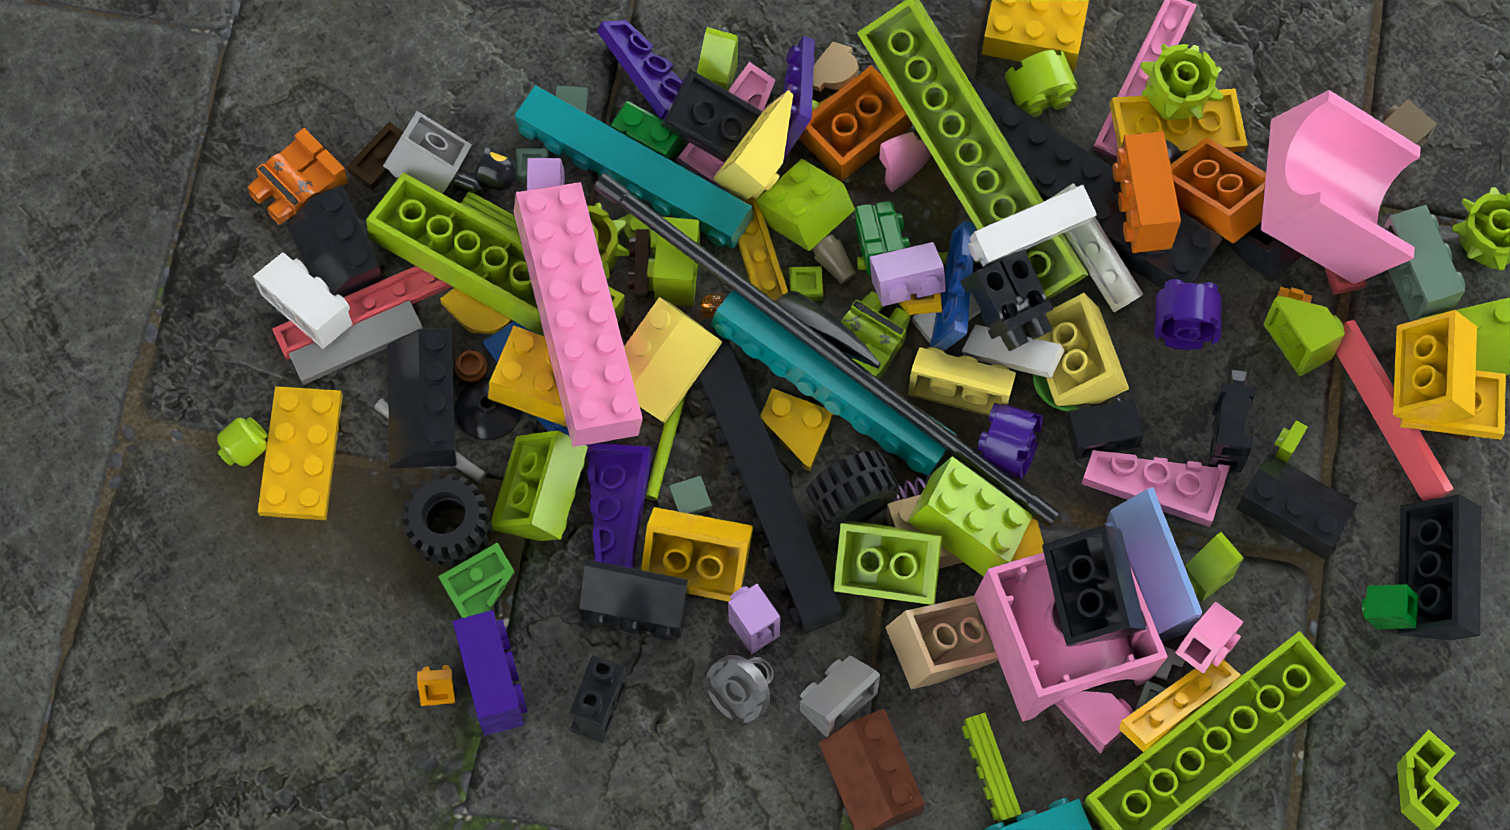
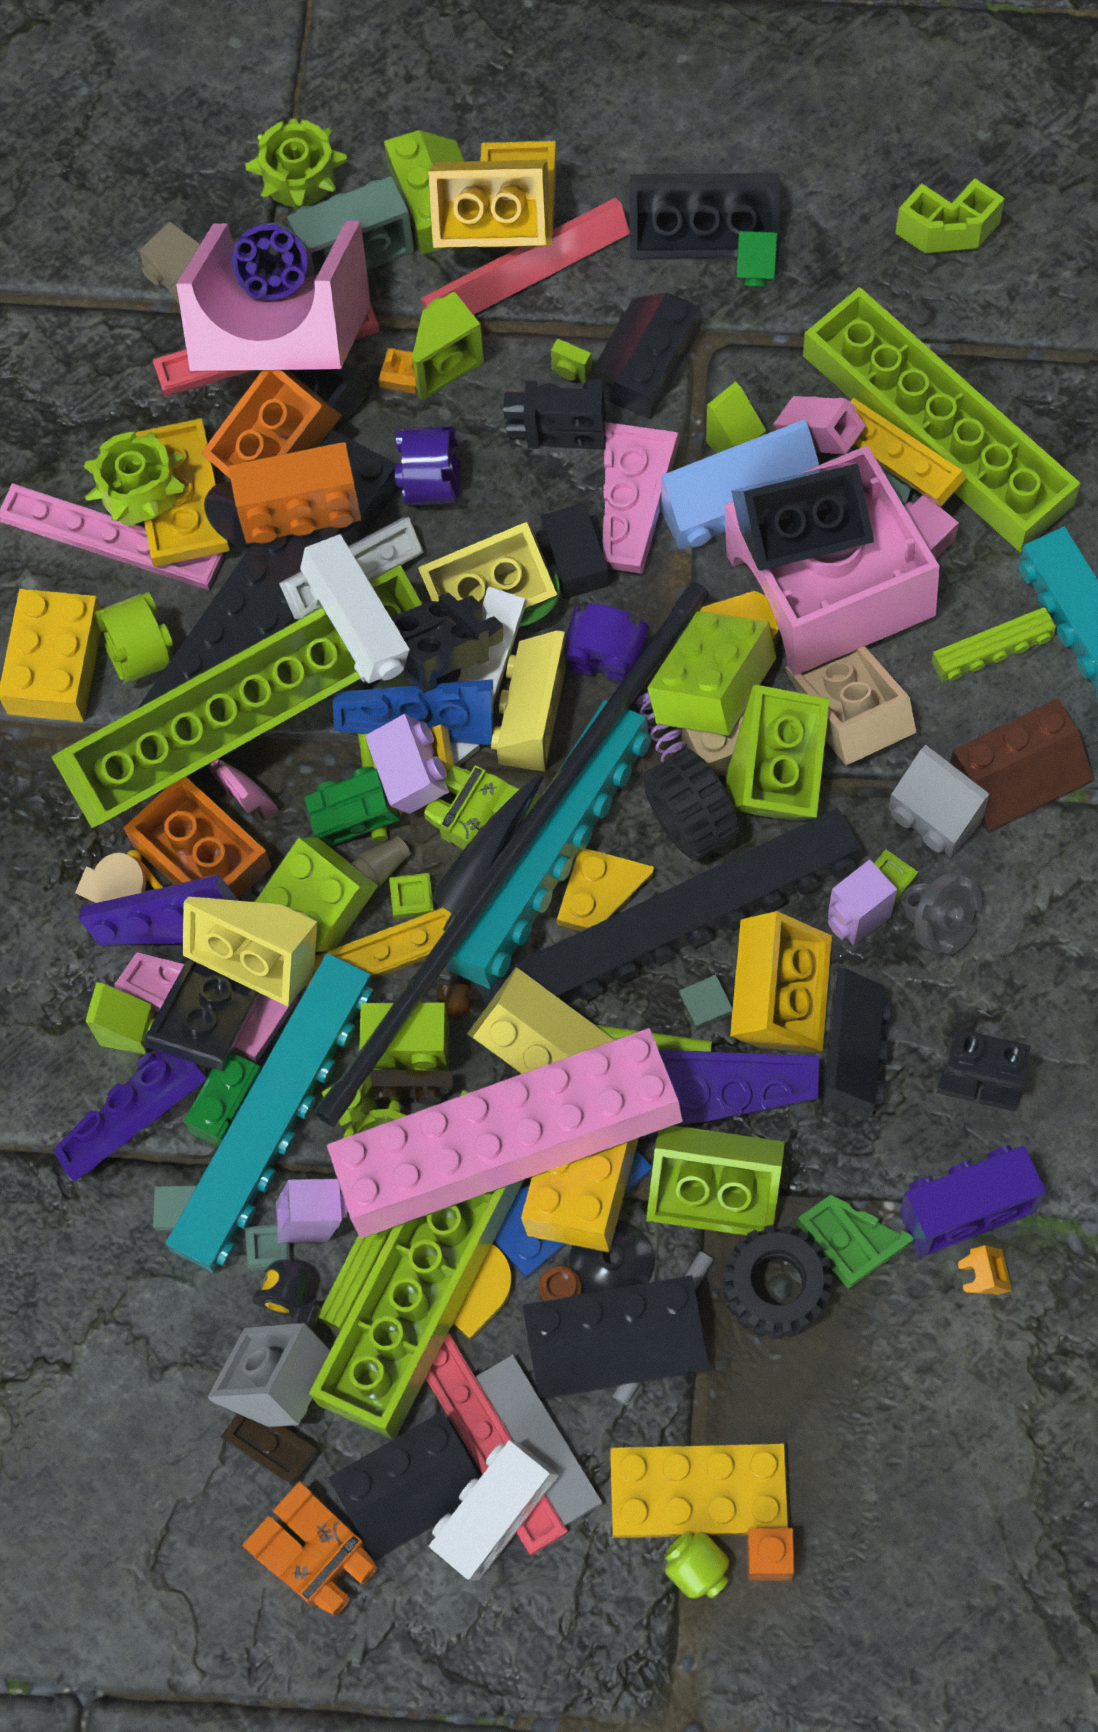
camera: 90 degrees left, 0 degrees up
(240, 494) = (770, 1554): none -> orange brick
(784, 655) = (896, 871): none -> lime tile
(1379, 186) = (269, 274): none -> dark purple cone

